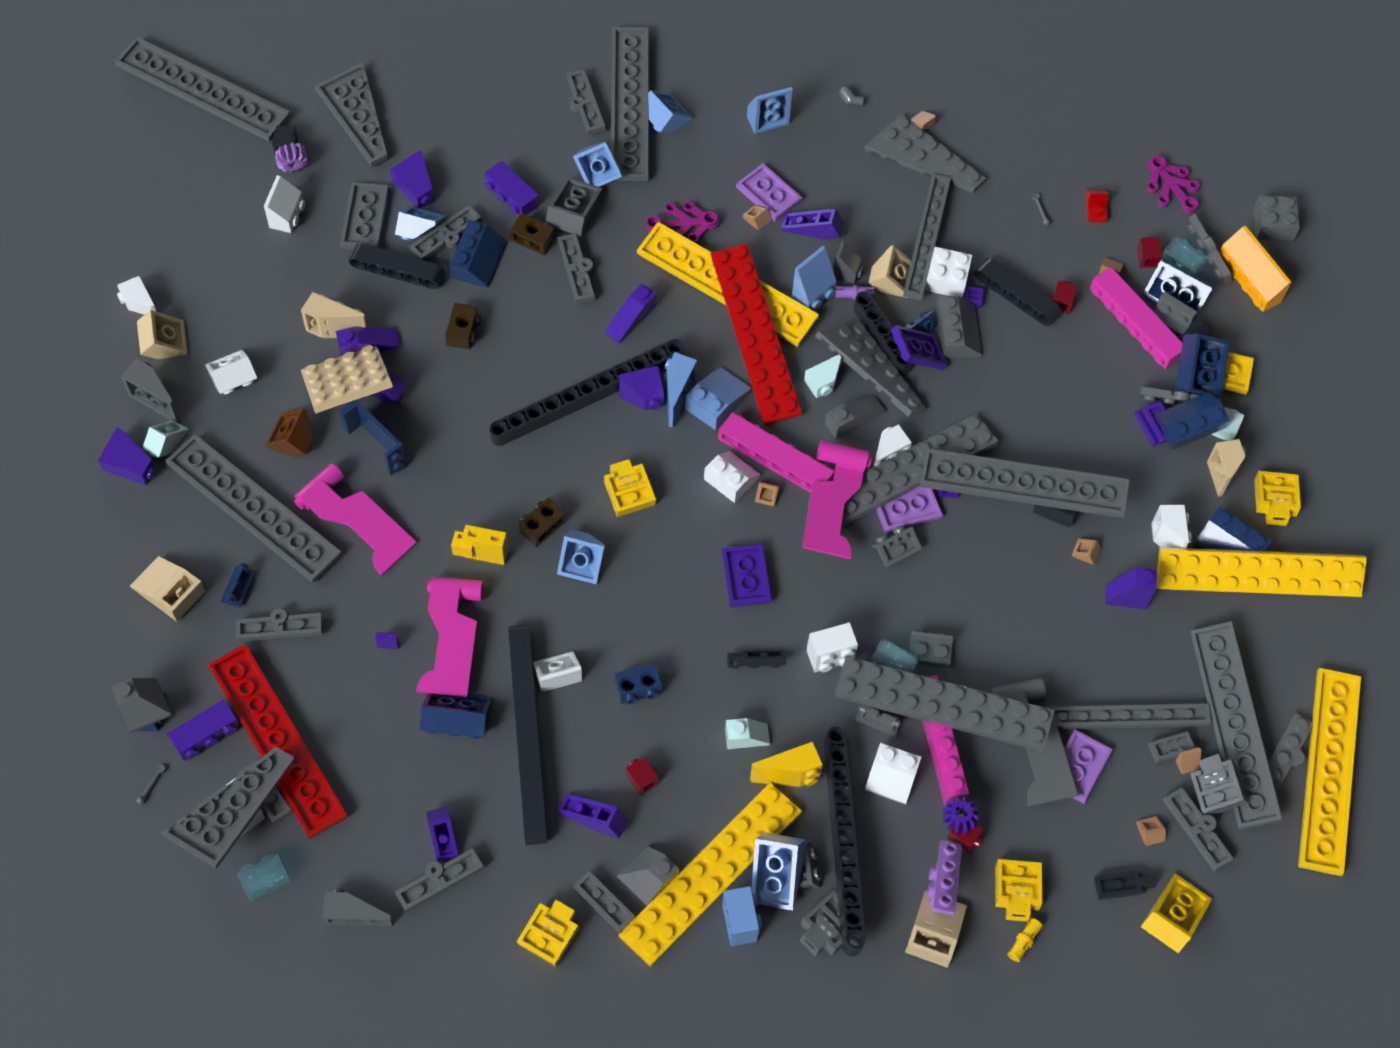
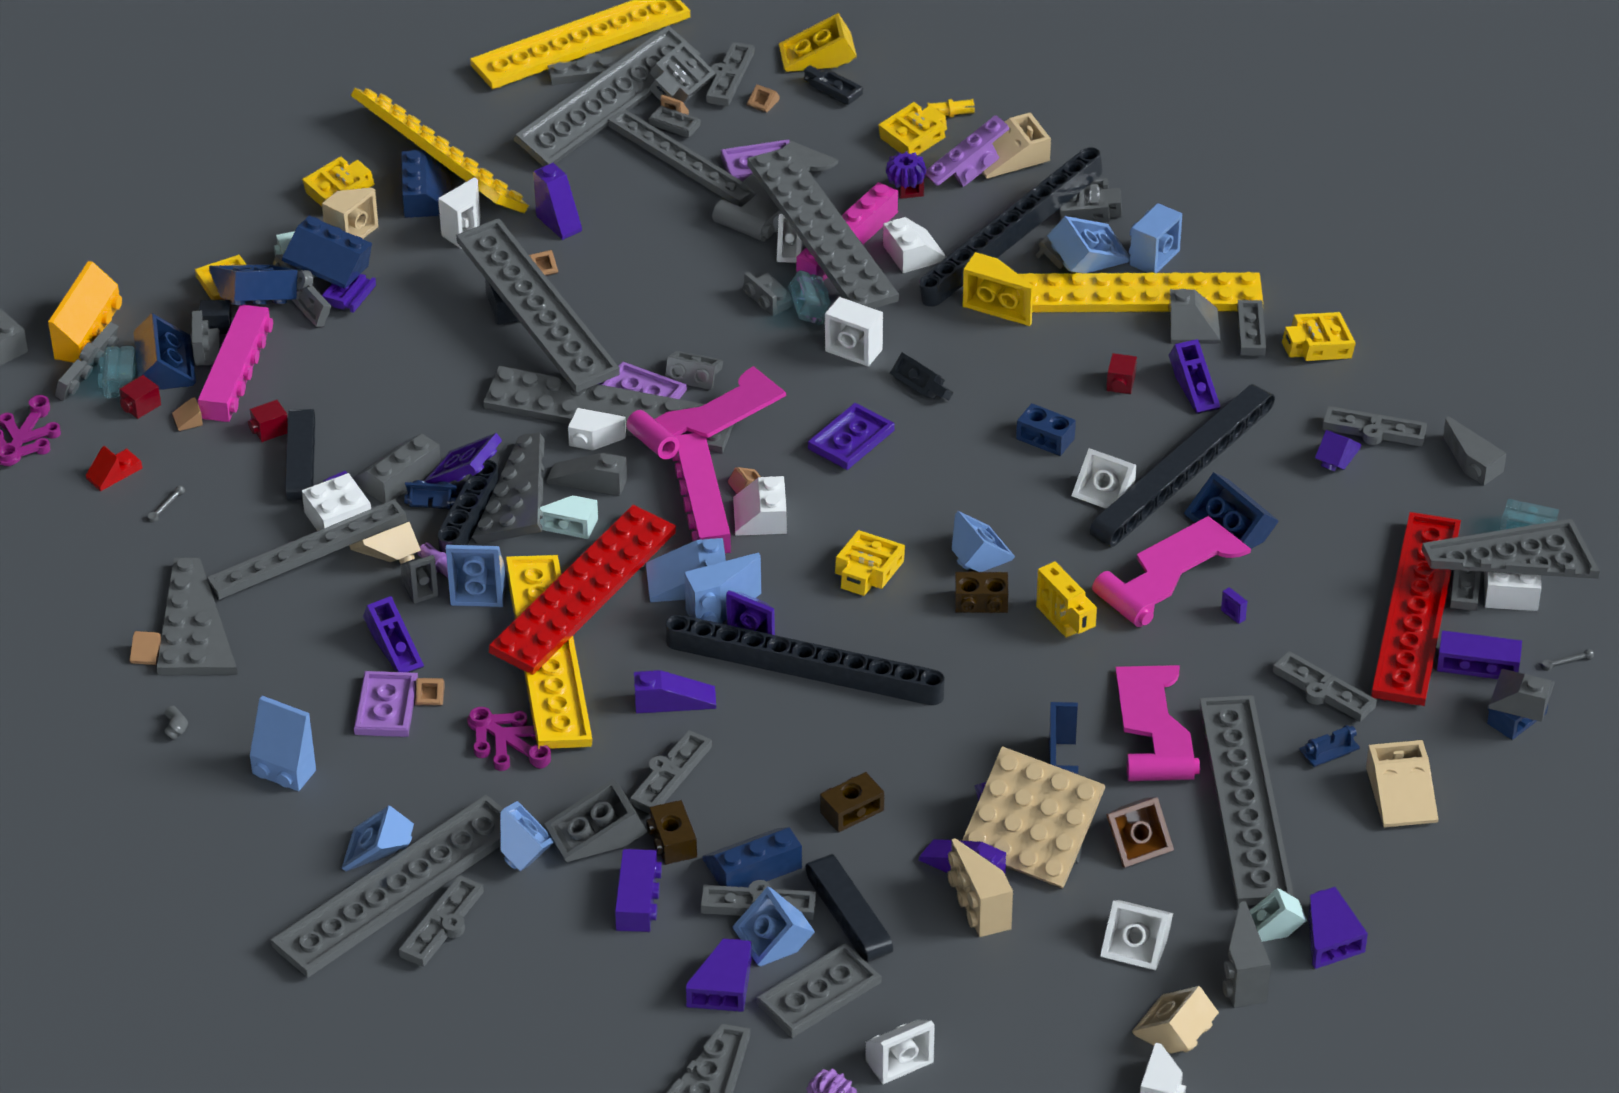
camera: 130 degrees left, 20 degrees down
(746, 733) = (1001, 343): light aqua slope -> none

